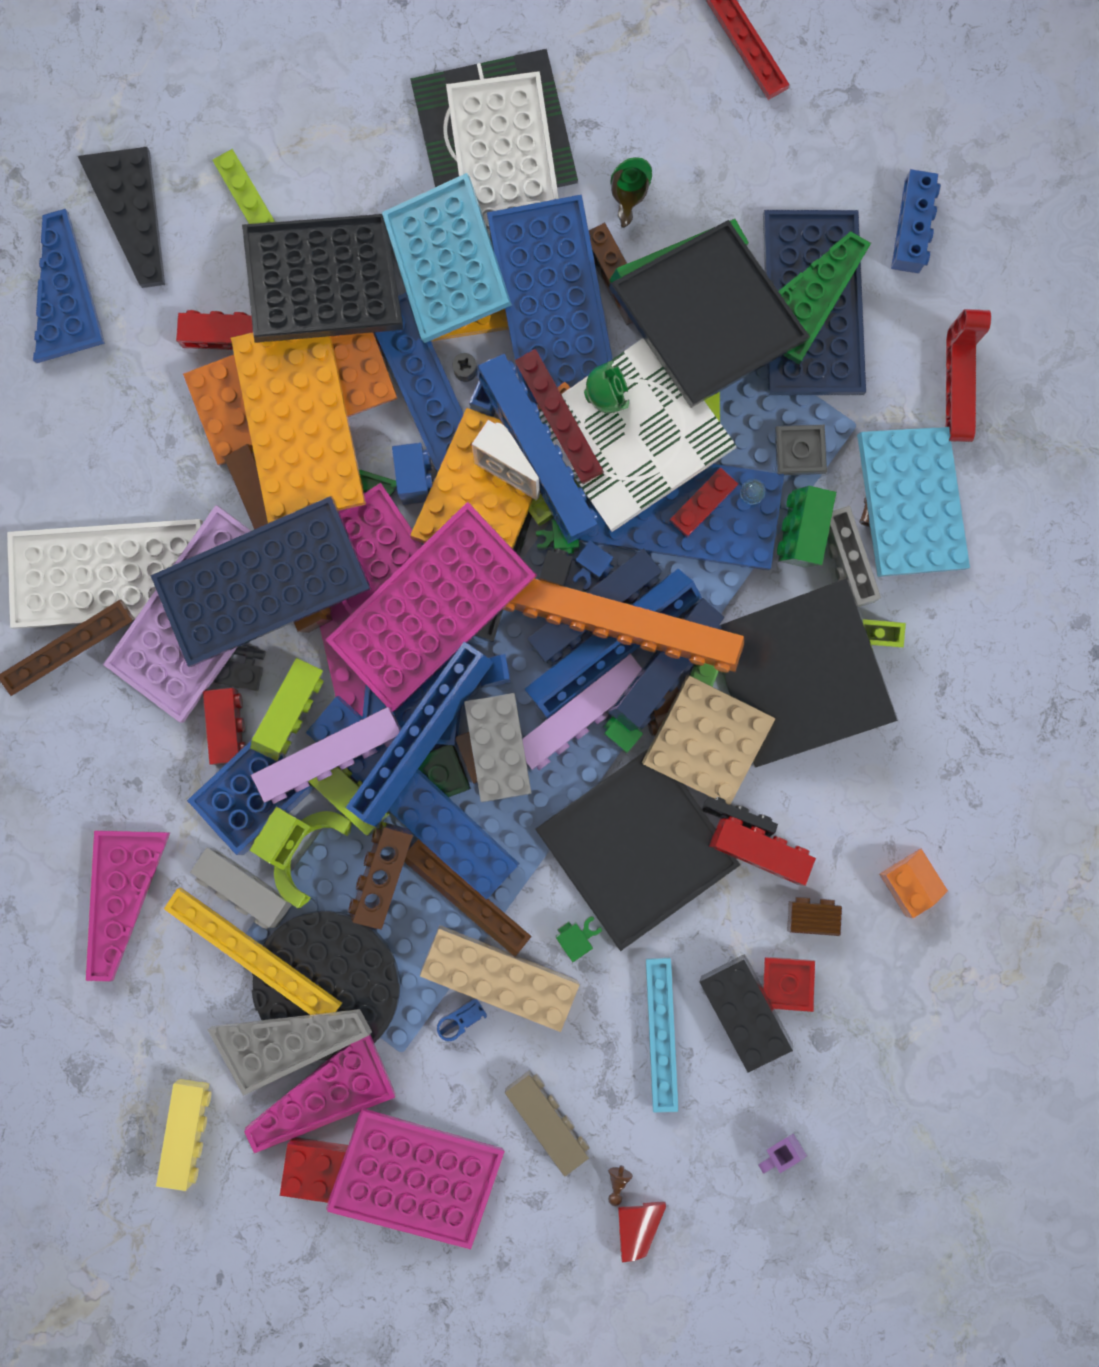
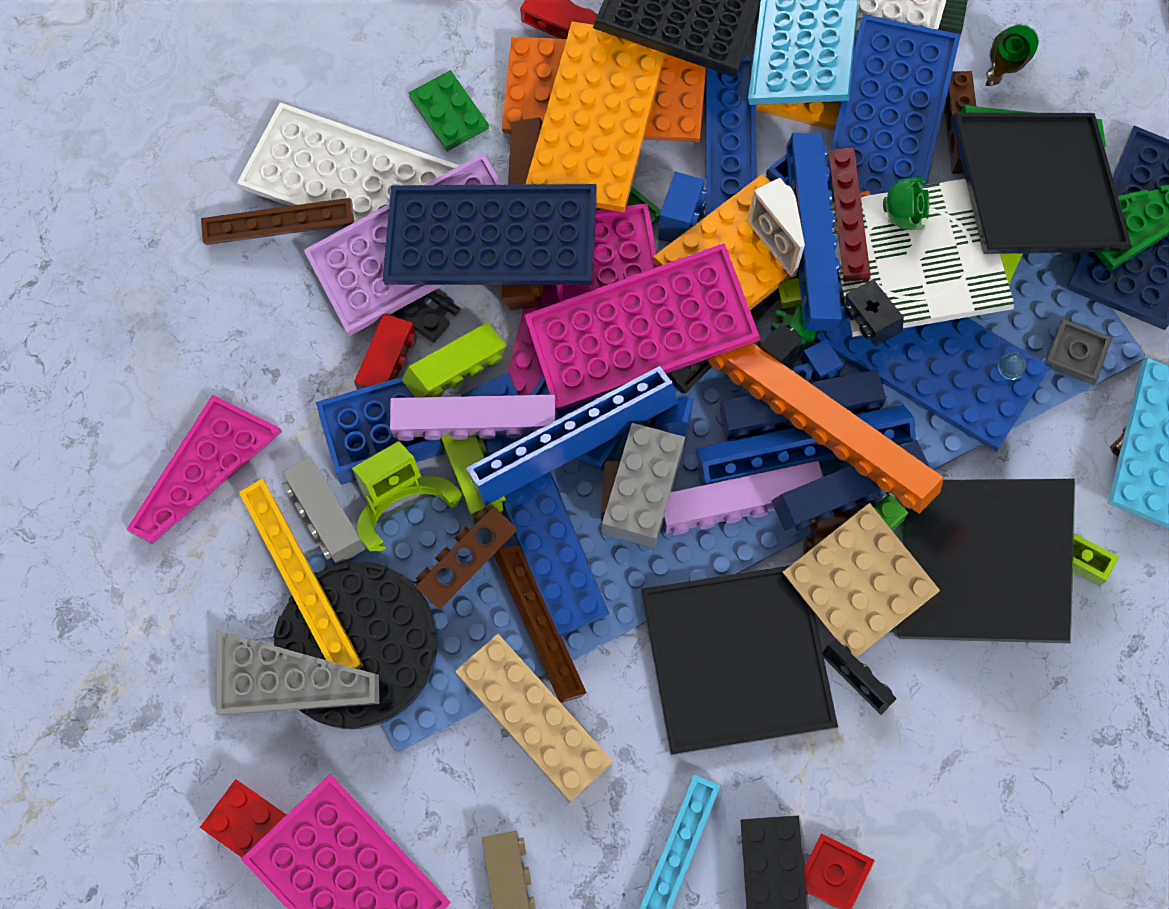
camera: 25 degrees right, 15 degrees down
(161, 467) = (448, 110): none -> green plate
(183, 1135) = (136, 724): light yellow brick -> none
(335, 1090) = (298, 753): dark pink wing -> none
(445, 770) = (578, 489): dark green plate -> none
(463, 1016) = (478, 745): blue piece -> none
(466, 372) = (776, 149): dark grey wheel -> none
(575, 940) = (629, 720): green brick -> none
(614, 496) = (874, 313): none -> black brick
(621, 735) = (774, 539): green brick -> none
(703, 502) = (957, 354): red plate -> none
(762, 851) = (868, 721): red brick -> none
(806, 526) = (1052, 421): green brick -> none
(814, 918) = (893, 816): reddish brown brick -> none
(850, 557) = (1087, 467): light grey brick -> none
(914, 884) = (1017, 833): orange slope -> none

